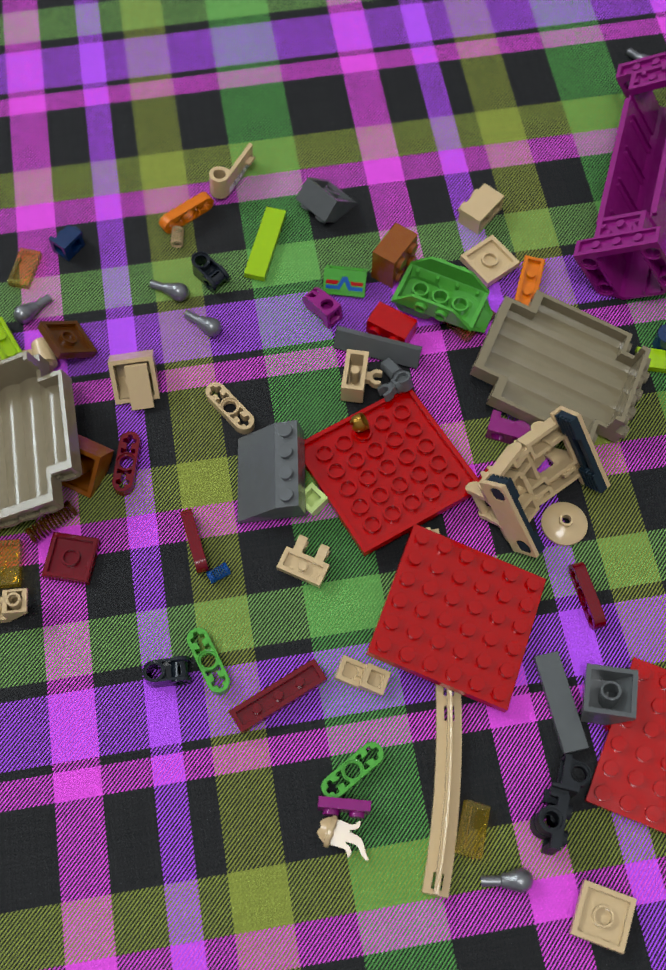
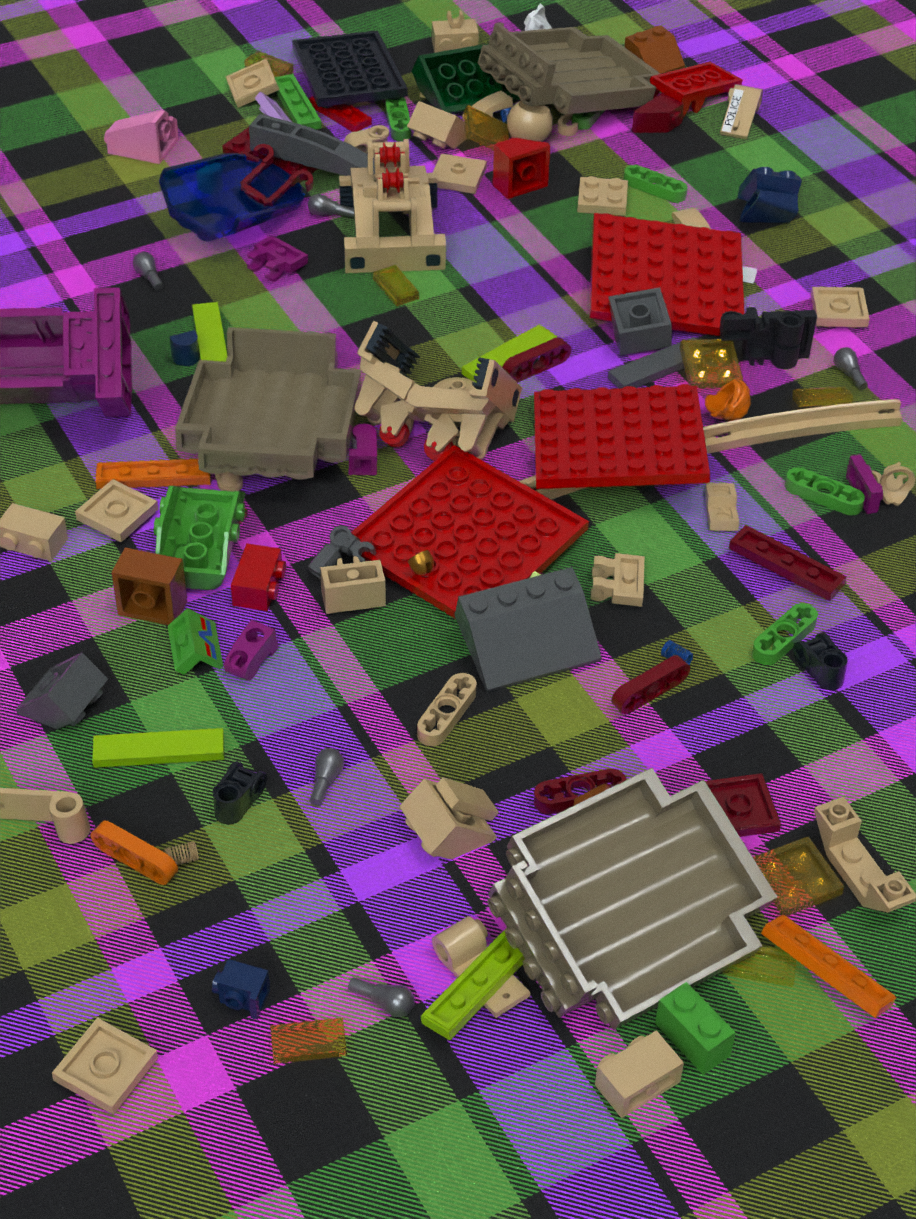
camera: 110 degrees left, 20 degrees down
(54, 174) = (105, 1065): none -> tan plate
(67, 339) = (427, 912): reddish brown plate -> none
(176, 291) = (283, 821): flat silver piece -> none
(378, 346) = (295, 583): dark grey tile -> none
(480, 732) = (730, 401): none -> orange hat
(540, 741) = (710, 362): none -> clear yellow plate
(605, 581) = (523, 342): none -> lime tile

